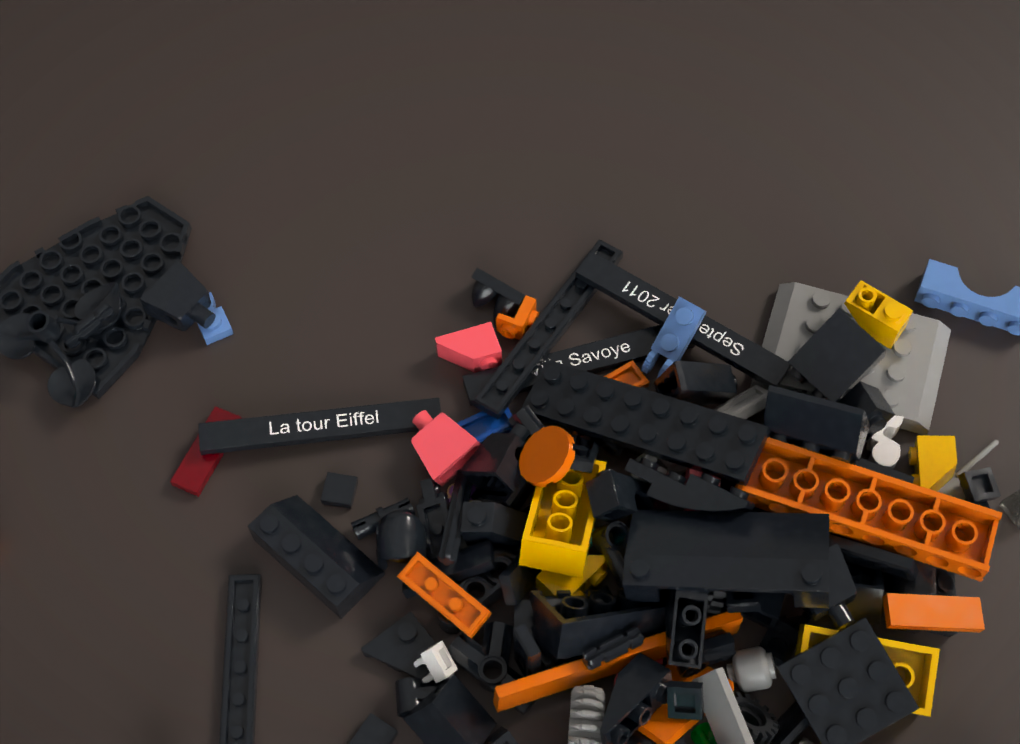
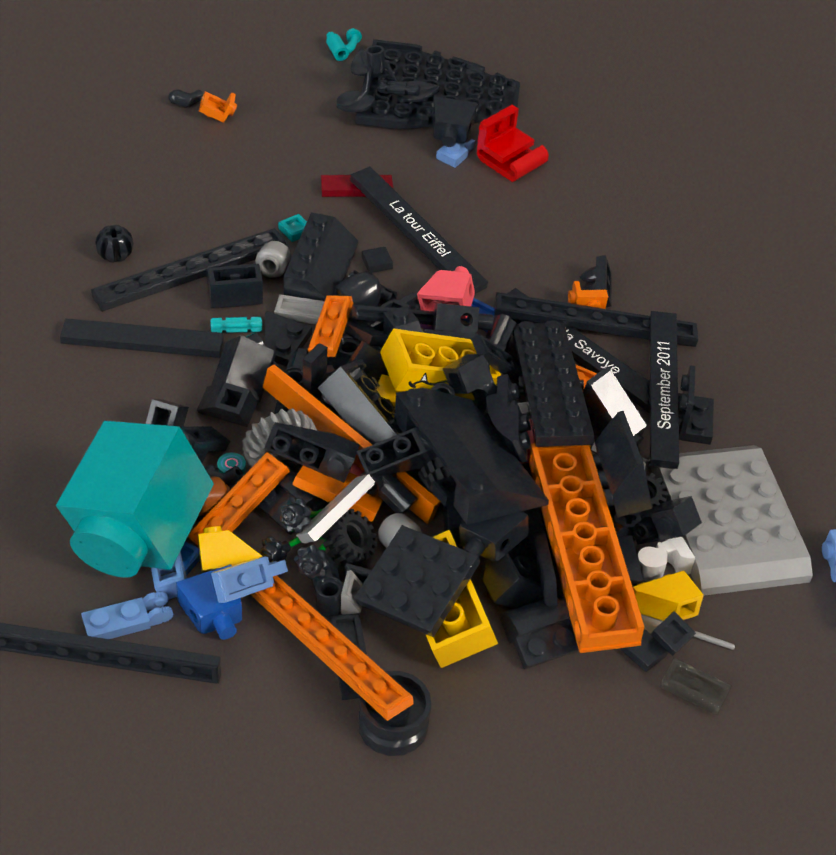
camera: 55 degrees right, 15 degrees down
(236, 551) = (292, 227): none -> teal tile
(251, 268) = (507, 147): none -> red piece
(285, 602) = (273, 259): none -> light grey head
(300, 663) = (234, 285): none -> black slope
(361, 692) = (236, 324): none -> teal axle
(373, 608) = (299, 309): none -> light grey tile
(438, 663) = (282, 343): white tile -> none
(471, 348) = (543, 281): coral slope -> none
(547, 456) = (471, 327): orange tile -> none
(612, 648) = (350, 422): black axle -> none
(675, 335) = (649, 381): medium blue hinge -> none
(685, 700) = (336, 475): black plate -> none
(719, 307) = (694, 412): none -> black bracket
(836, 357) = (708, 473): black slope -> none
(878, 313) = (769, 496): yellow slope -> none
(933, 612) = (525, 623): orange tile -> none

